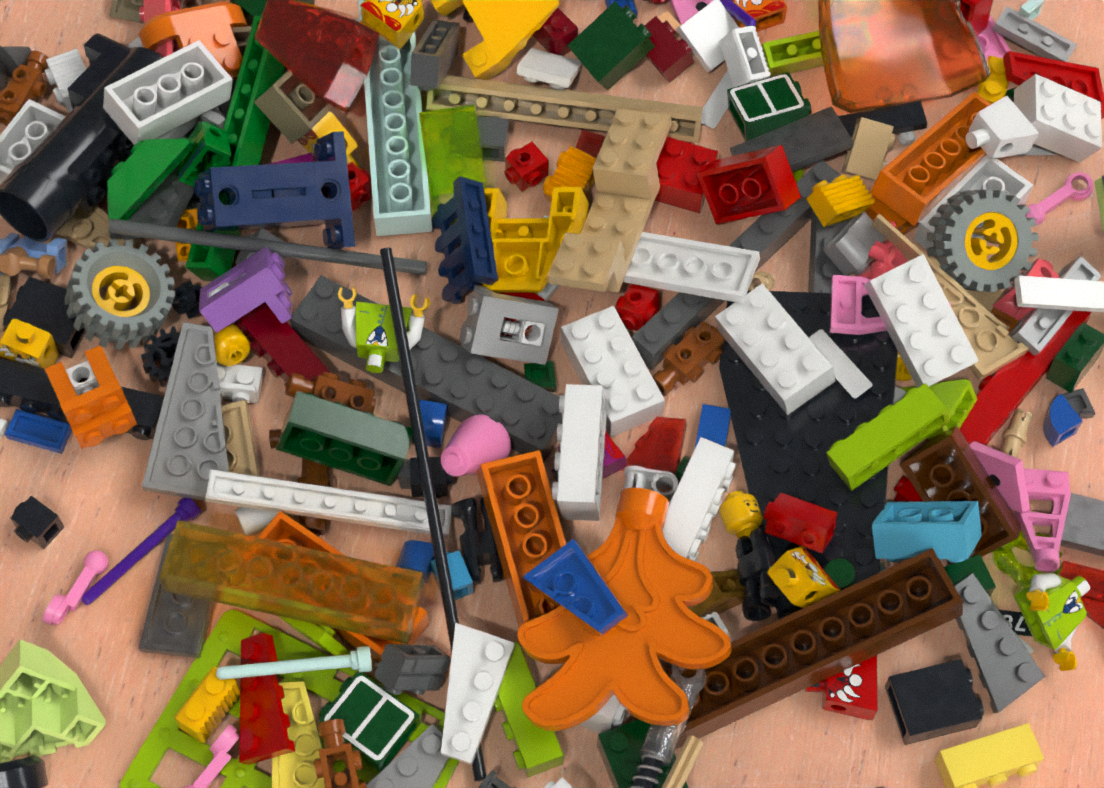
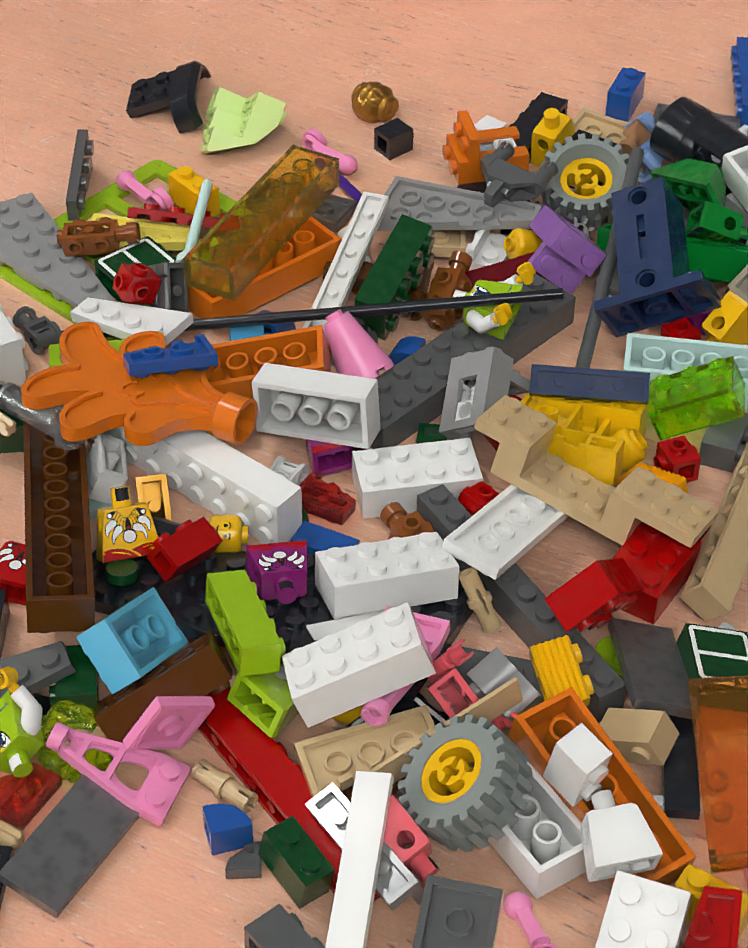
camera: 105 degrees right, 20 degrees down
(159, 357) = (510, 181): none -> dark grey connector
(430, 697) = (136, 283): none -> red brick
(523, 204) = (634, 447): none -> yellow head
(798, 435) = (278, 570): none -> magenta torso
(968, 147) = (578, 765): none -> white brick

